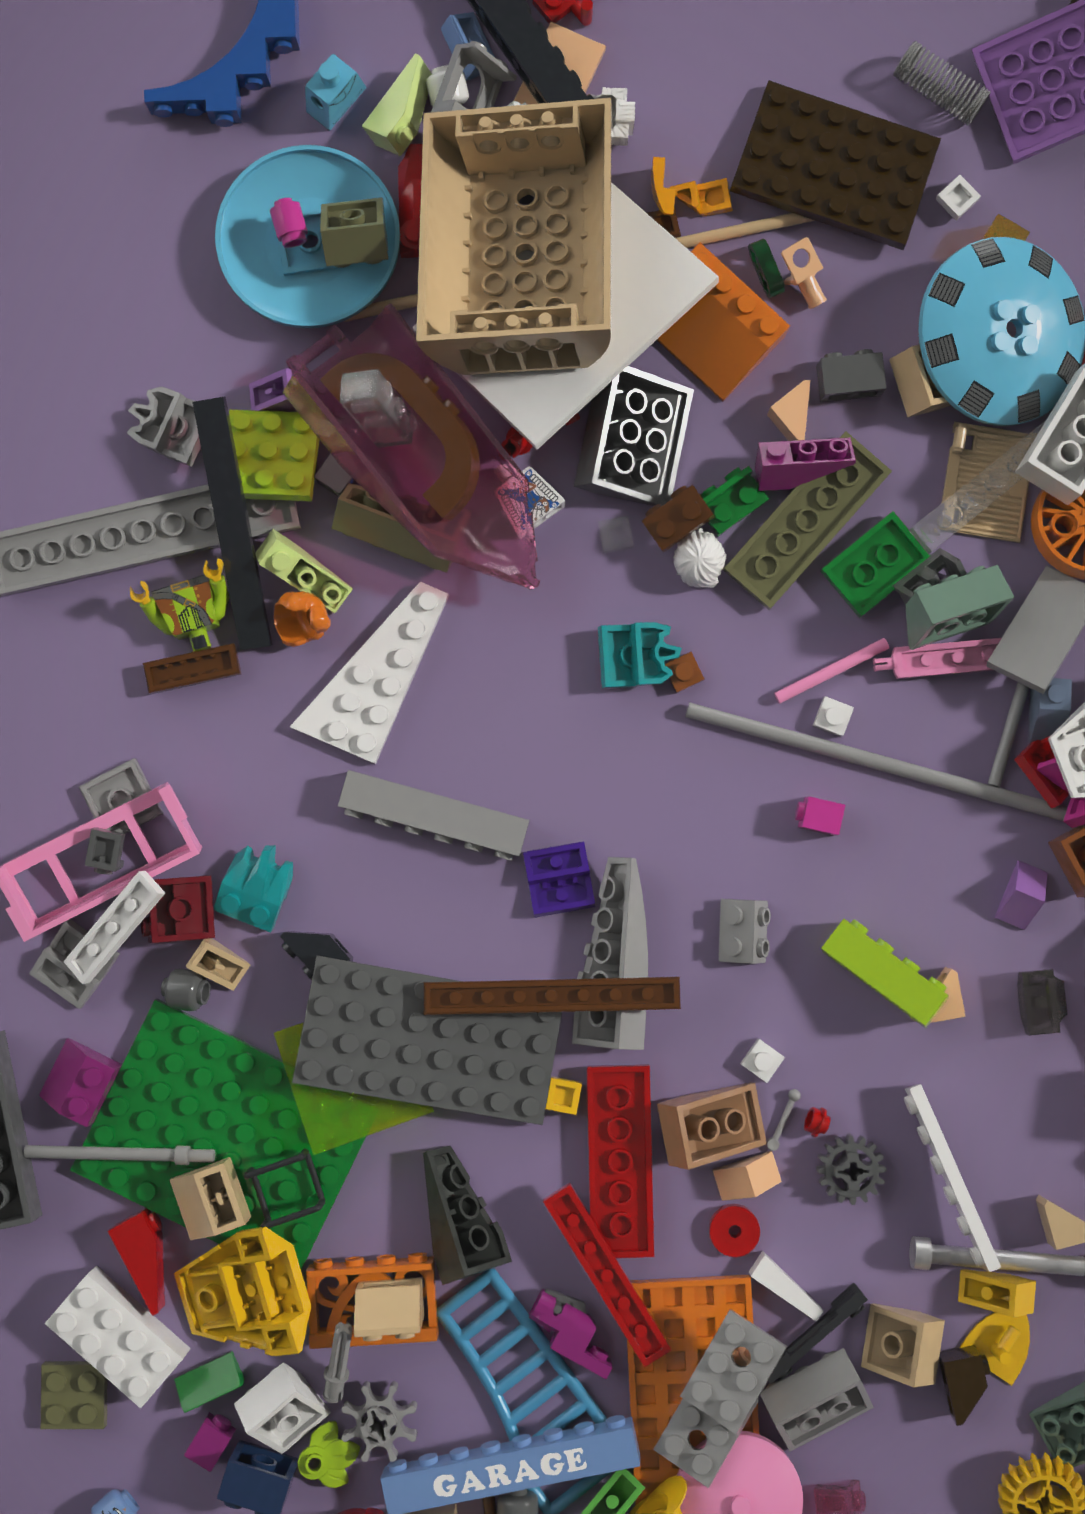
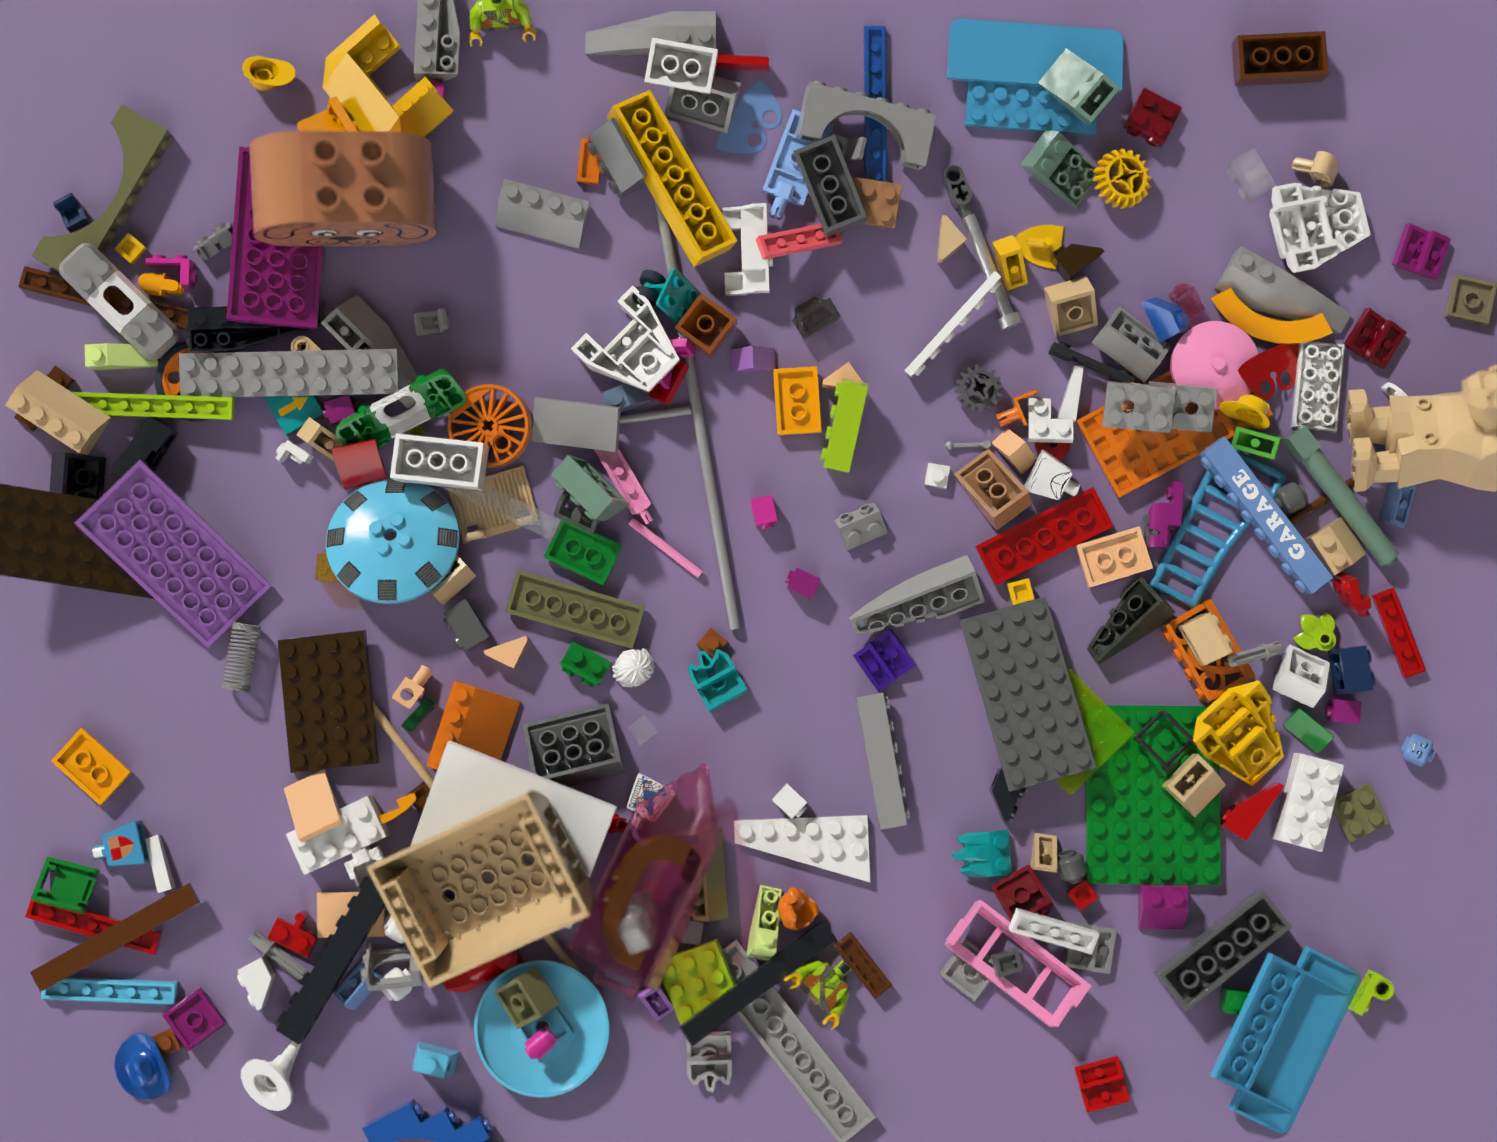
camera: 120 degrees left, 0 degrees up
(143, 986) = (1082, 894): none -> red plate
(180, 1155) = (1176, 817): light grey bar -> none
(385, 1409) = (1288, 610): light grey gear -> none
(401, 109) = (427, 1008): yellowish green slope -> none
(438, 674) = (790, 801): none -> white brick
(542, 1251) = (1114, 557): none -> light nougat plate
(552, 995) = (962, 629): reddish brown tile -> none
(607, 1275) = (1118, 511): red plate -> none
(665, 100) = (358, 829): none -> white brick
(677, 517) = (615, 694): reddish brown bracket -> none
(691, 1207) = (1050, 478): none -> white torso
(705, 198) = (389, 777): light orange slope -> none
(706, 821) = (802, 583): none -> magenta brick
(715, 83) = (312, 806): none -> light nougat tile
(758, 1231) = (1043, 428): none -> white plate
(796, 462) = (540, 632): magenta slope -> none
(796, 1203) = (1015, 413): none -> orange bracket
(817, 1121) = (959, 423): red plate -> none
(828, 1463) = (1166, 318): none -> blue slope
(833, 716) = (695, 533): white plate -> none
(943, 926) = (797, 400): none -> light orange plate
(958, 197) = (312, 610): white plate -> none

